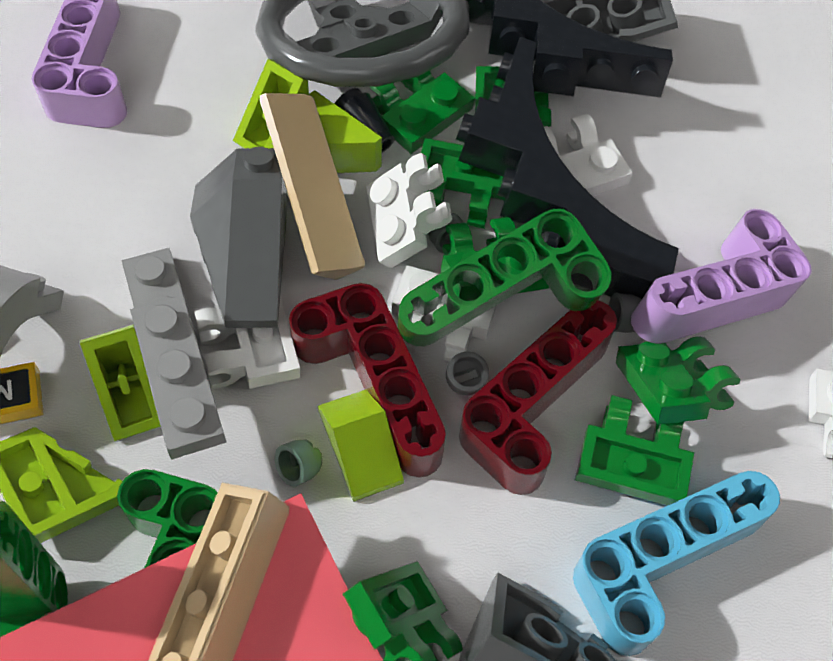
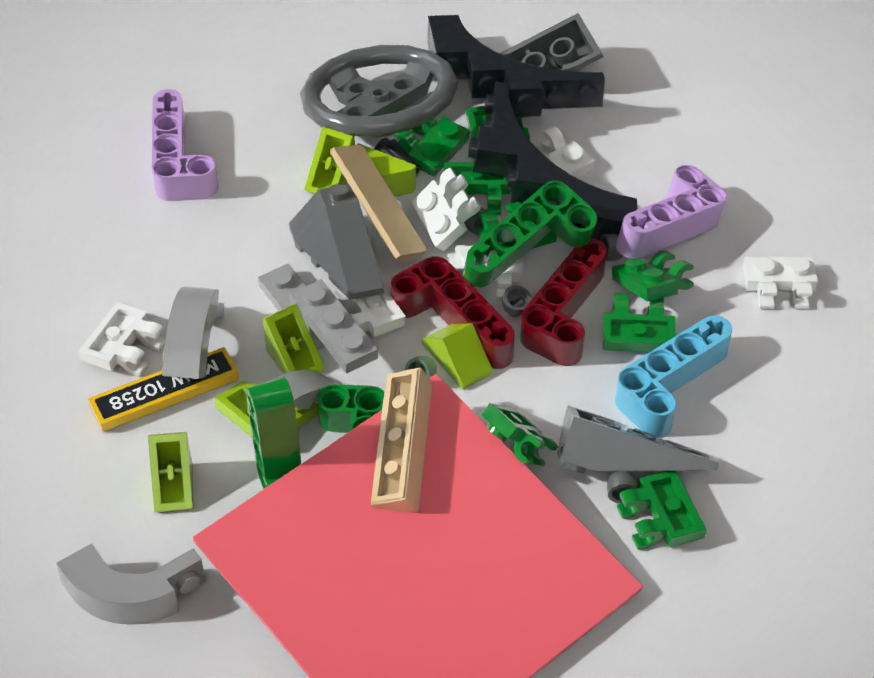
camera: 10 degrees left, 10 degrees down
(100, 462) = (305, 386): none -> light grey slope

